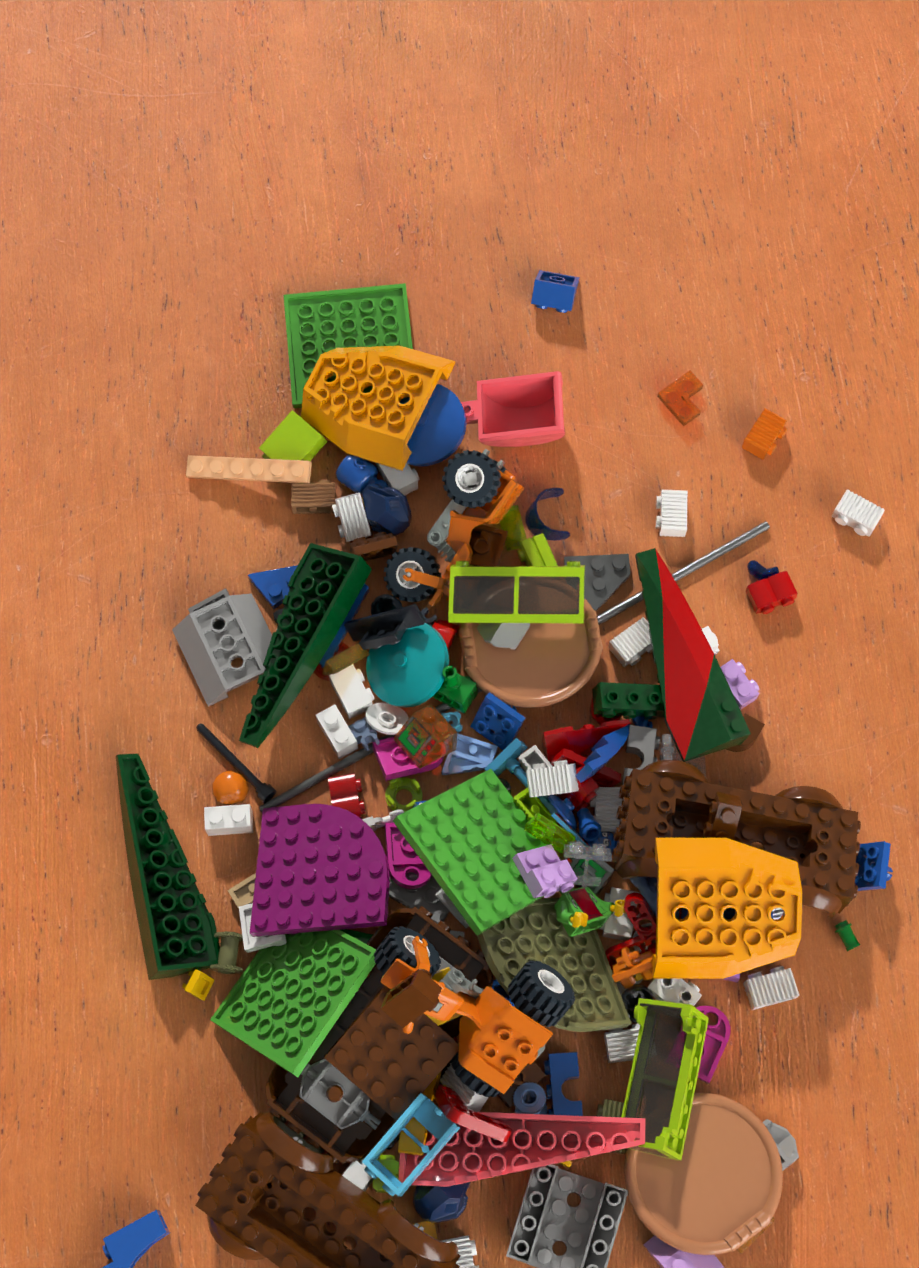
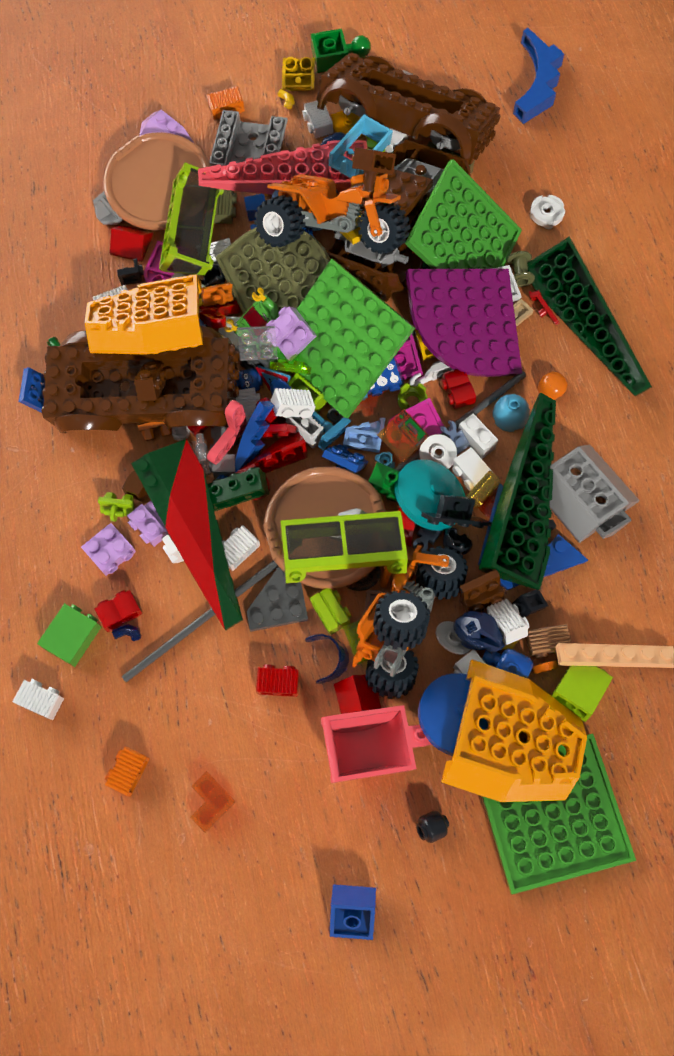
camera: 175 degrees right, 0 degrees up
(181, 1046) = (546, 219): none -> white plate
(198, 984) = (537, 246): yellow tile -> none
(210, 894) = (536, 295): none -> red piece
(228, 819) = (547, 358): white brick -> none
(264, 791) = (525, 386): black piece -> none
(288, 760) = (511, 412): none -> medium azure cylinder
(323, 472) = (545, 667): none -> orange tile
(323, 535) = (530, 603): none -> black bracket
(422, 506) = (449, 639): none -> white dish
(457, 1112) = (325, 165): red beam -> none
(468, 346) = (432, 826): none -> black head
(527, 467) = (355, 695): none -> red slope
(588, 825) = (261, 386): blue cone -> none
(603, 496) = (277, 681): none -> red brick
(630, 760) = (236, 425): none -> coral beam
(672, 513) = (211, 674): white brick -> none
(749, 1087) = (129, 242): none -> red slope
(750, 1030) = (131, 275): none -> black bracket
(781, 664) = (108, 549): none -> lavender plate
(781, 716) = (116, 507): none -> lime hips
(825, 574) = (70, 634): none -> bright green brick

